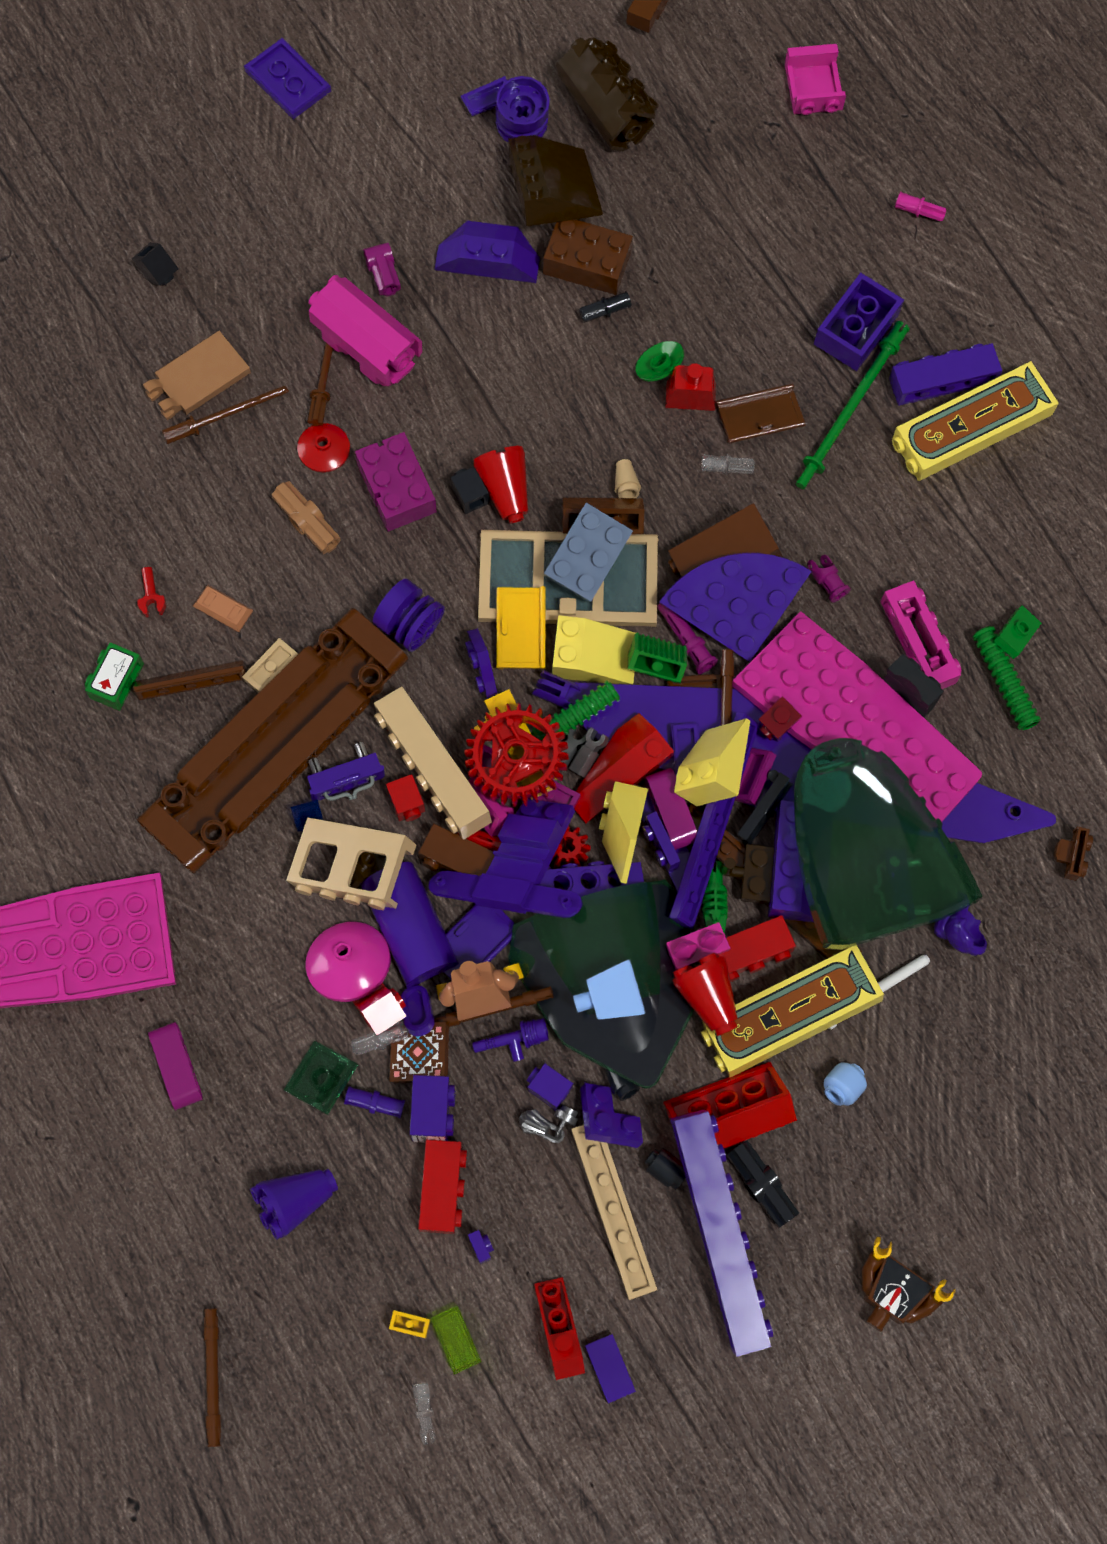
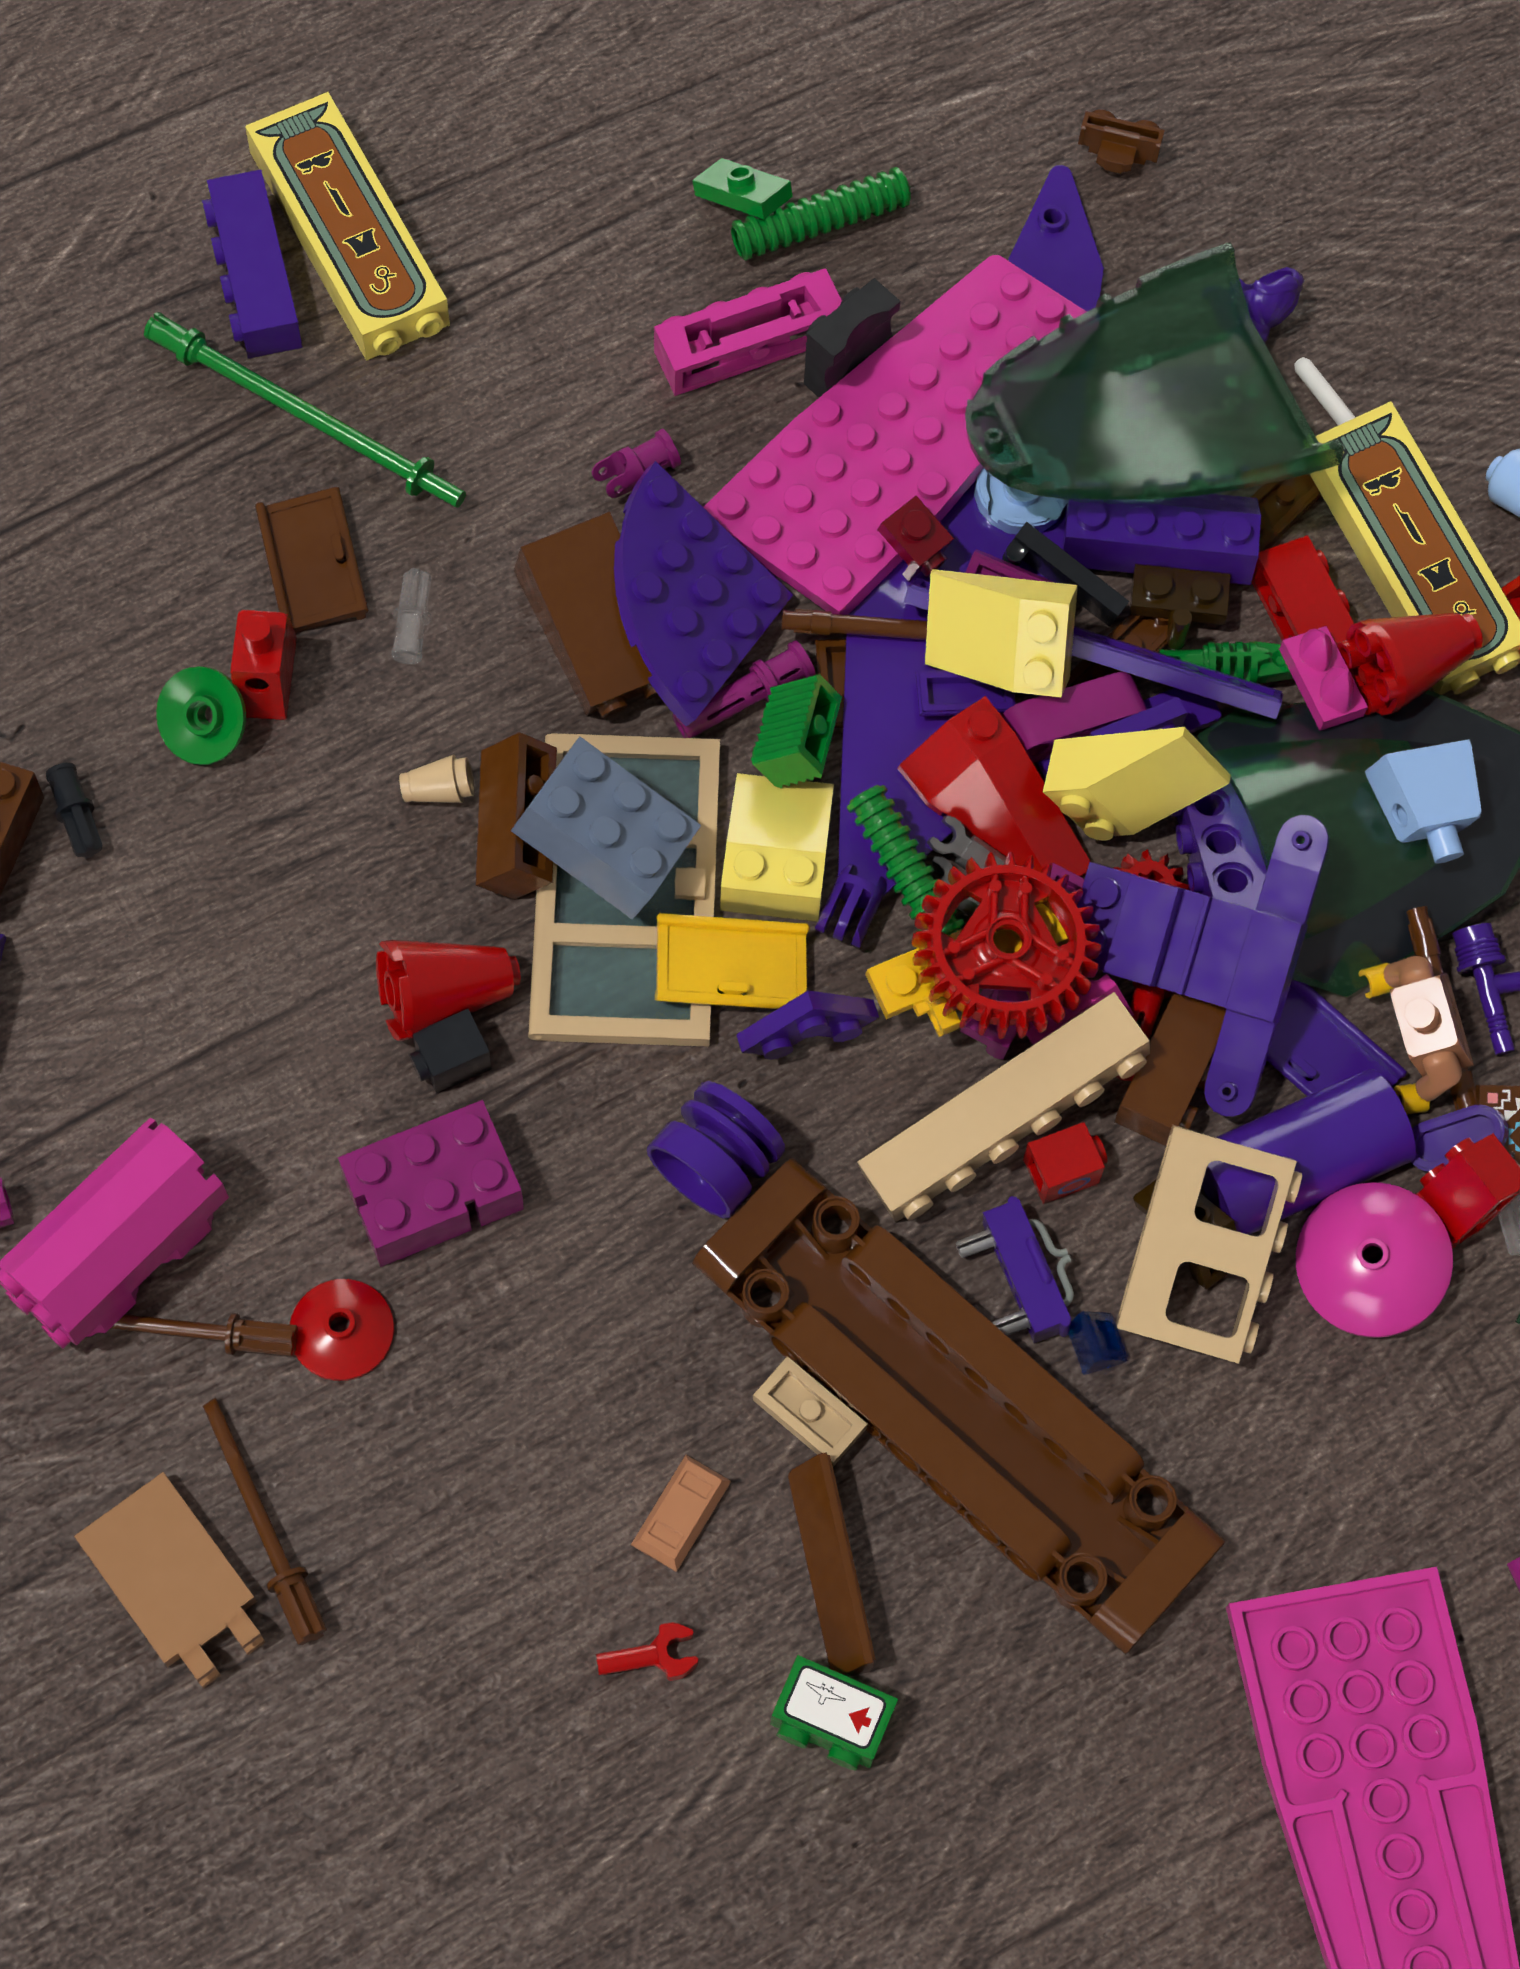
camera: 90 degrees left, 5 degrees down
(306, 517) = (498, 1352): medium nougat piece -> none
(858, 321) = (146, 385): dark purple brick -> none

